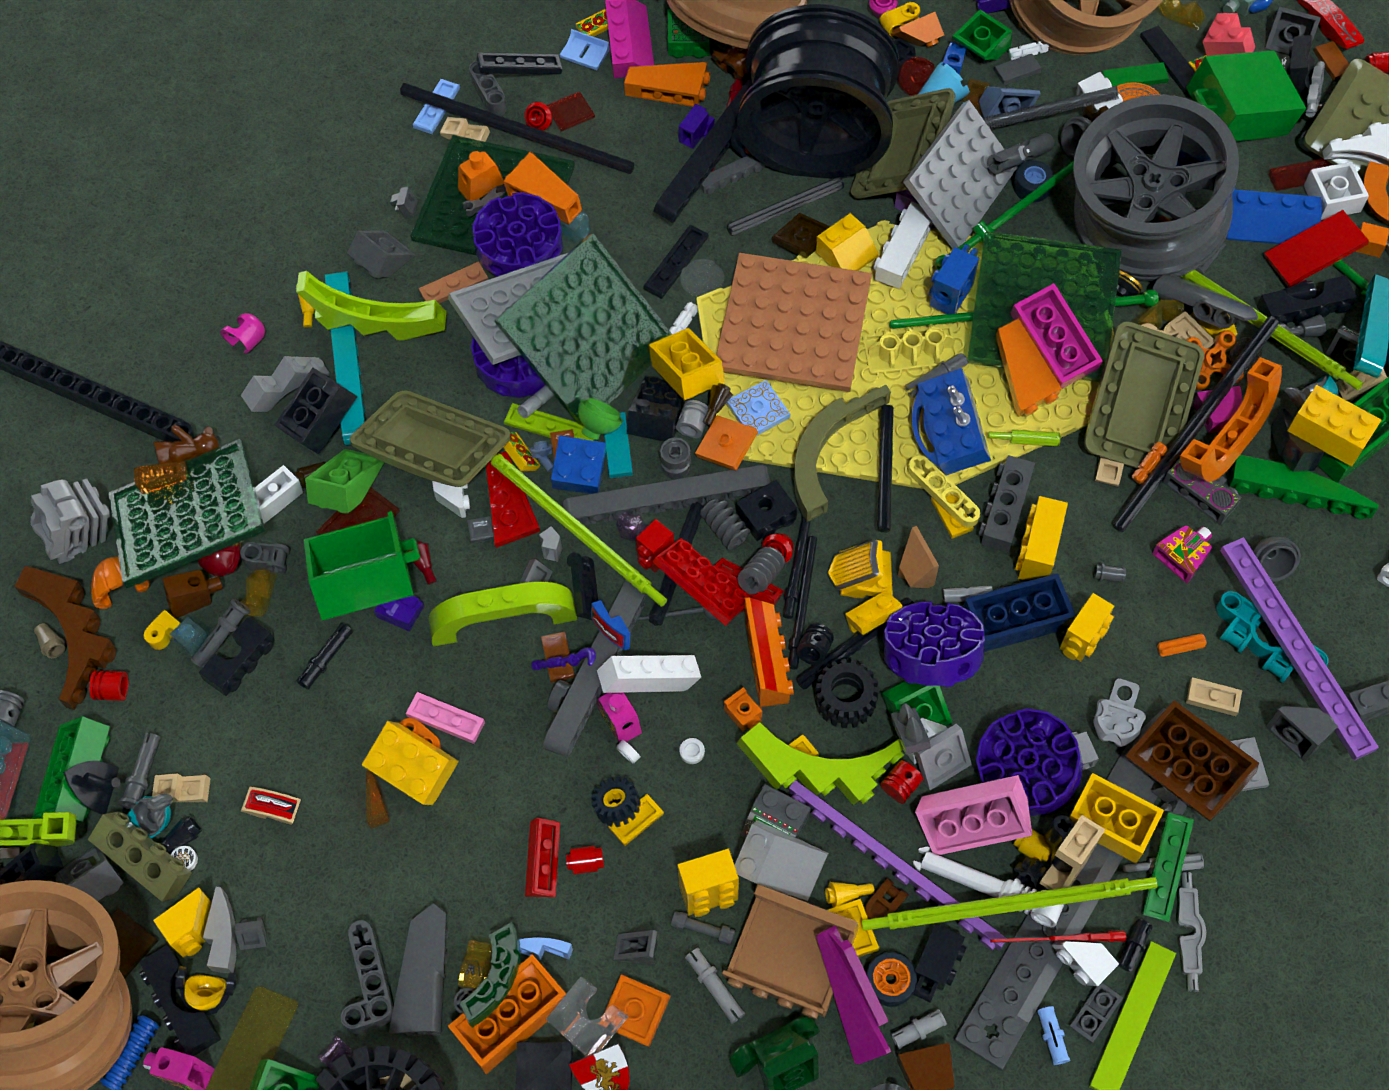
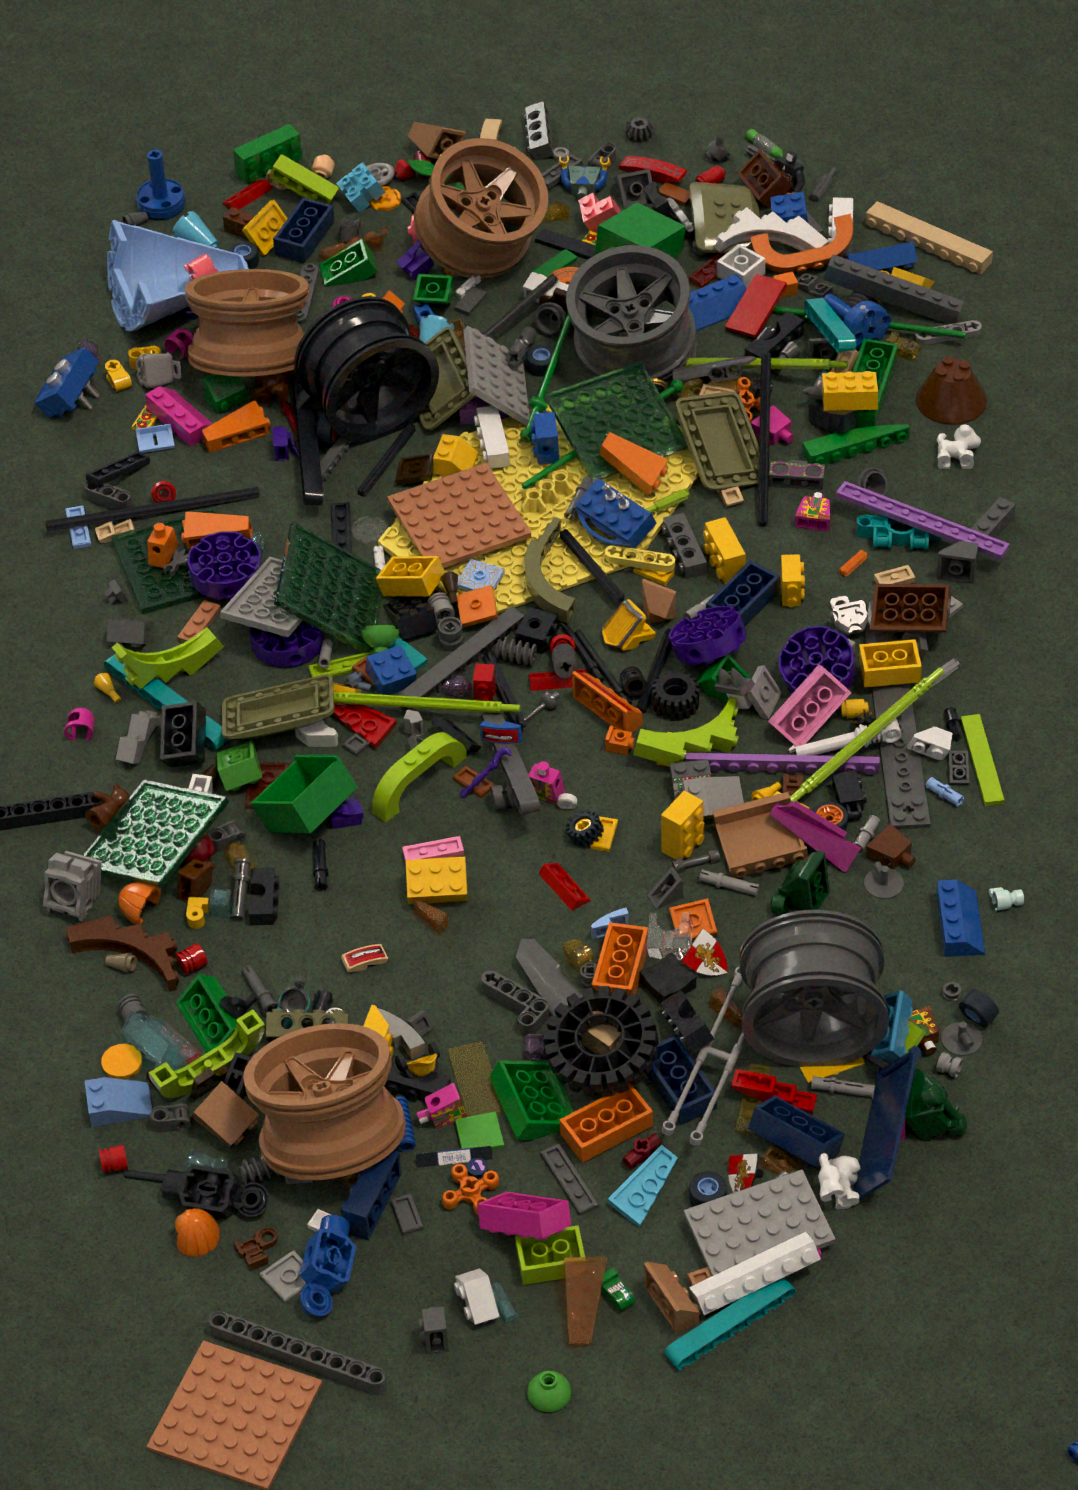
camera: 35 degrees left, 15 degrees down
(158, 476) = (110, 828): clear orange slope -> none
(182, 788) = (287, 982): tan slope -> none
(501, 977) = (601, 942): dark green tile -> none
(570, 111) = (182, 479): clear red piece -> none
(585, 860) = (593, 868): red brick -> none
(648, 673) = (547, 746): white brick -> none
(692, 751) = (605, 781): white tile -> none
(702, 581) = (535, 685): red tile -> none
(872, 613) = (654, 645): yellow bracket -> none
(902, 781) = (749, 722): red piece -> none
(1001, 100) = (486, 317): sand blue slope -> none
(1054, 837) = (872, 690): black axle -> none
(1057, 335) = (641, 428): dark pink brick -> none
(1075, 852) = (883, 677): tan panel -> none
(1108, 936) = (892, 747): red sword -> none
(1109, 573) = (776, 550): dark grey pin -> none
(1149, 462) = (753, 476): orange axle -> none
(1168, 866) = (945, 683): green tile -> none
(1190, 945) = (983, 707): light grey piece -> none
(1213, 460) = (791, 446): orange arch -> none

